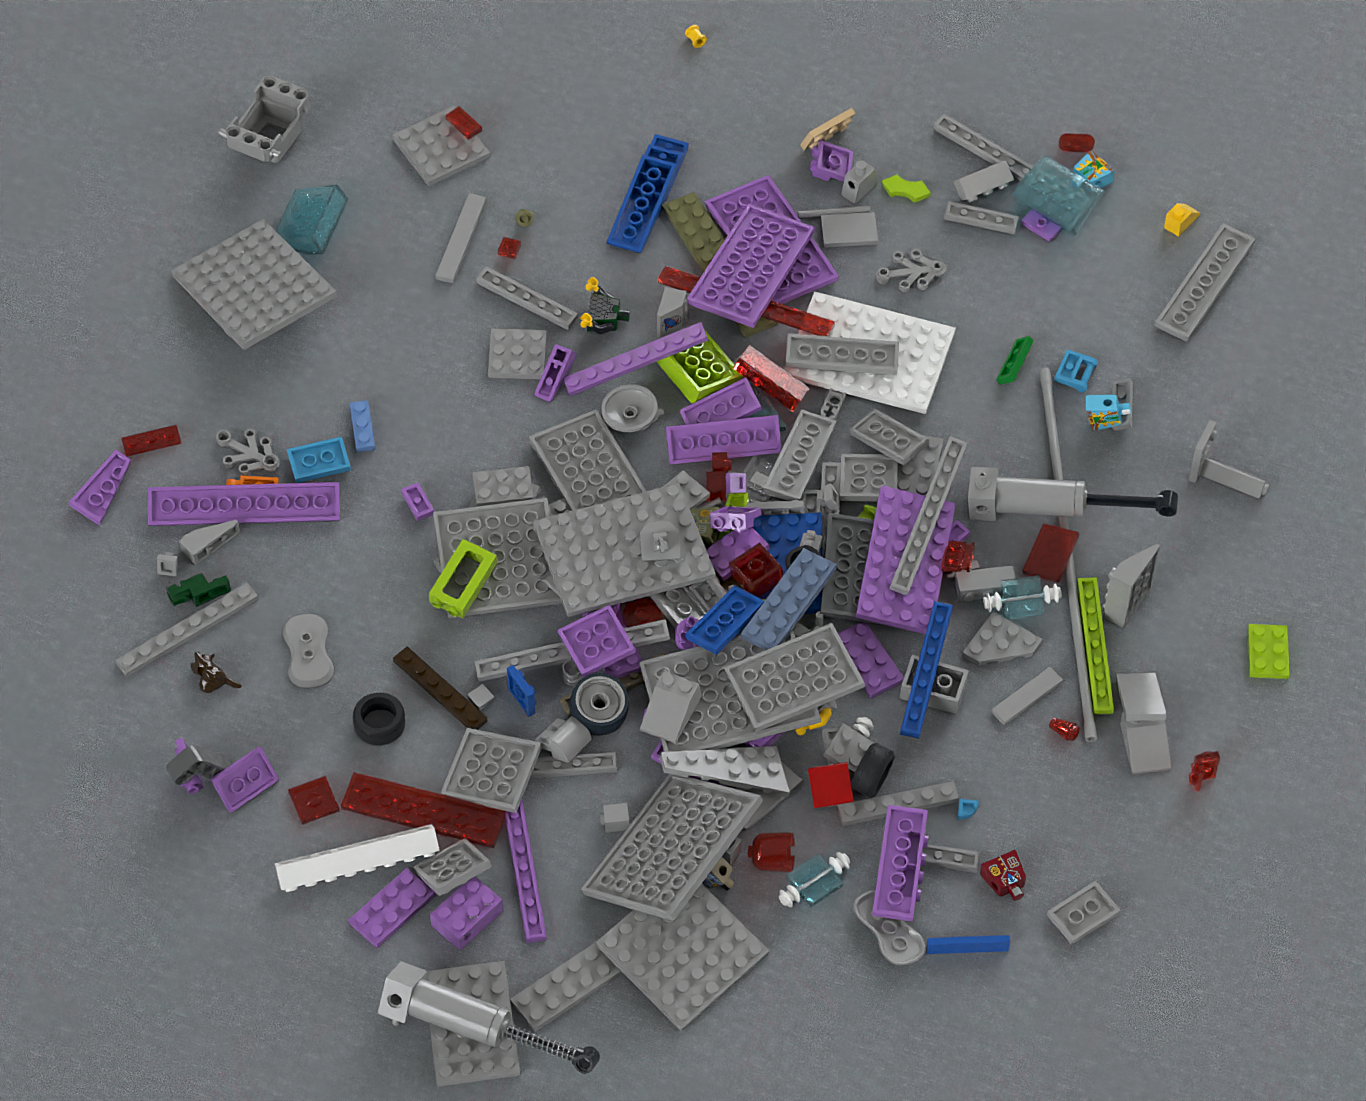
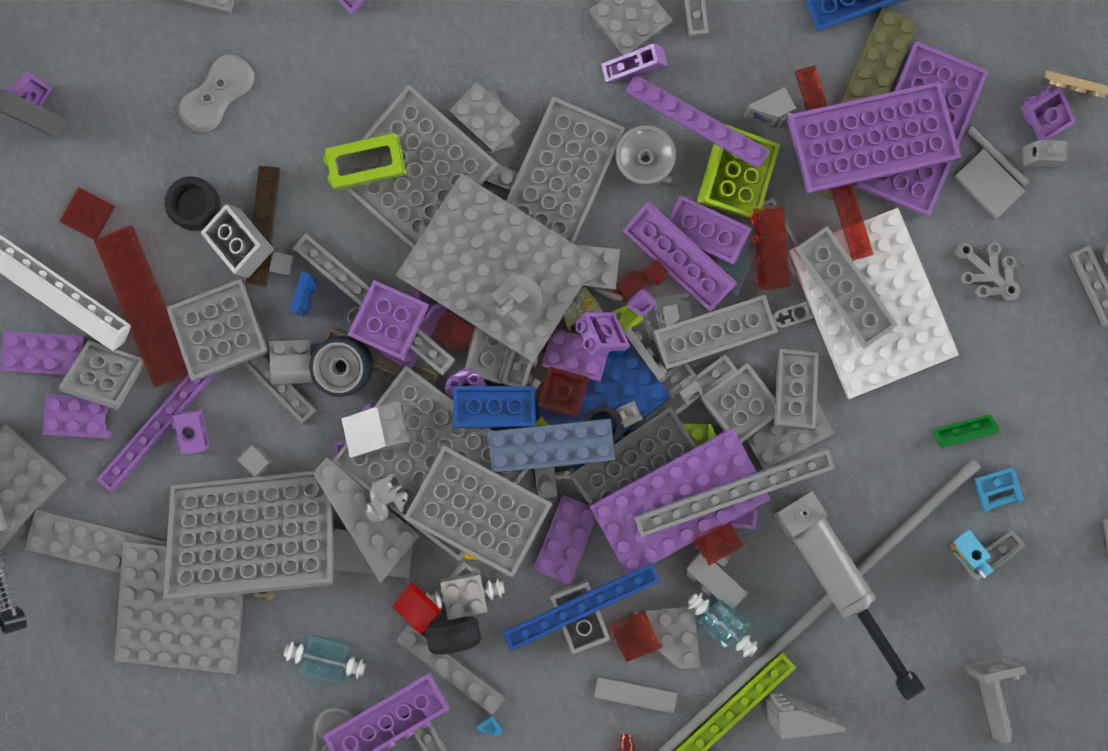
camera: 50 degrees right, 30 degrees up
(211, 675) = (126, 40): dark brown animal -> none
(244, 779) = (52, 148): medium lavender tile -> none
(417, 501) = (418, 60): medium lavender plate -> none
(439, 702) = (237, 241): none -> light grey brick
(549, 832) = (195, 420): none -> medium lavender brick
(603, 310) = (728, 52): torso -> none
(724, 733) = (381, 495): none -> light grey animal
(773, 851) = (318, 611): clear red cylinder -> none
(897, 186) = (1078, 204): lime tile -> none
(982, 660) = (635, 635): none -> clear red tile
(1051, 552) = (789, 611): clear red tile -> none

